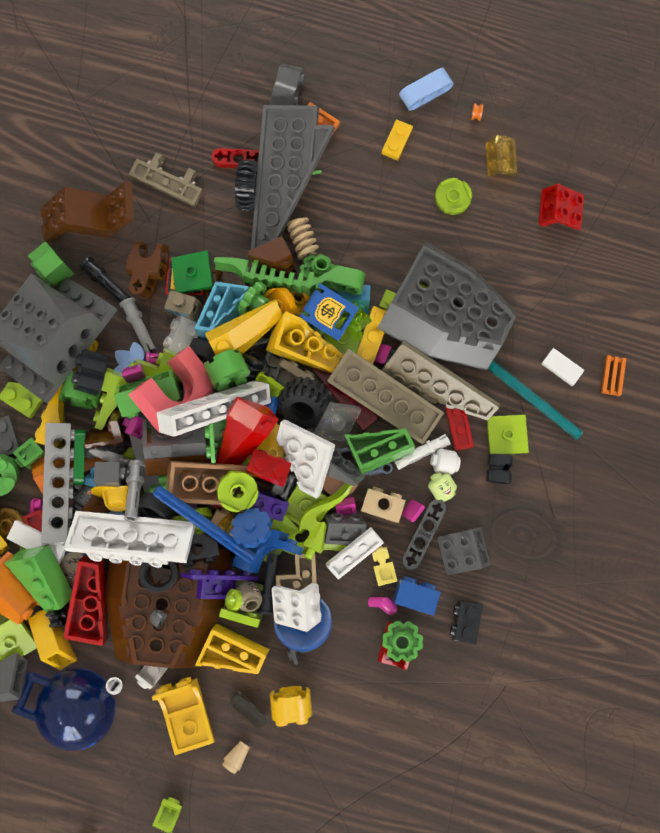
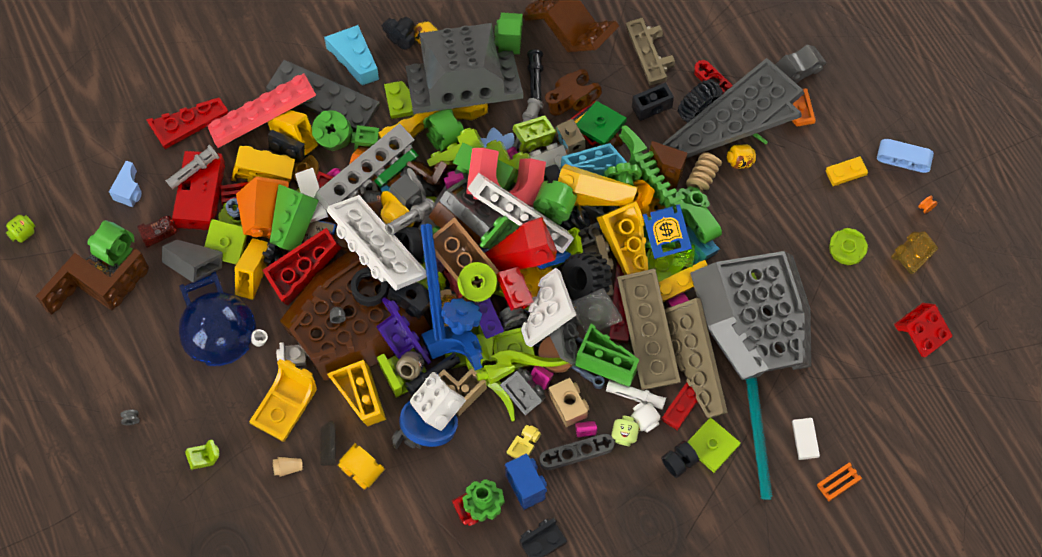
camera: 45 degrees right, 15 degrees down
(89, 372) = (462, 119): black brick -> none
(133, 373) = (489, 144): dark pink slope -> none
(151, 327) = (534, 133): none -> lime bracket
(212, 218) = (652, 101): none -> black brick
(234, 599) = (398, 355): lime tile -> none
(316, 199) = (741, 156): none -> yellow head
(354, 553) = (513, 413): white tile -> none
(384, 603) = (498, 469): dark pink arm -> none
(464, 551) = (594, 491): dark grey bracket -> none

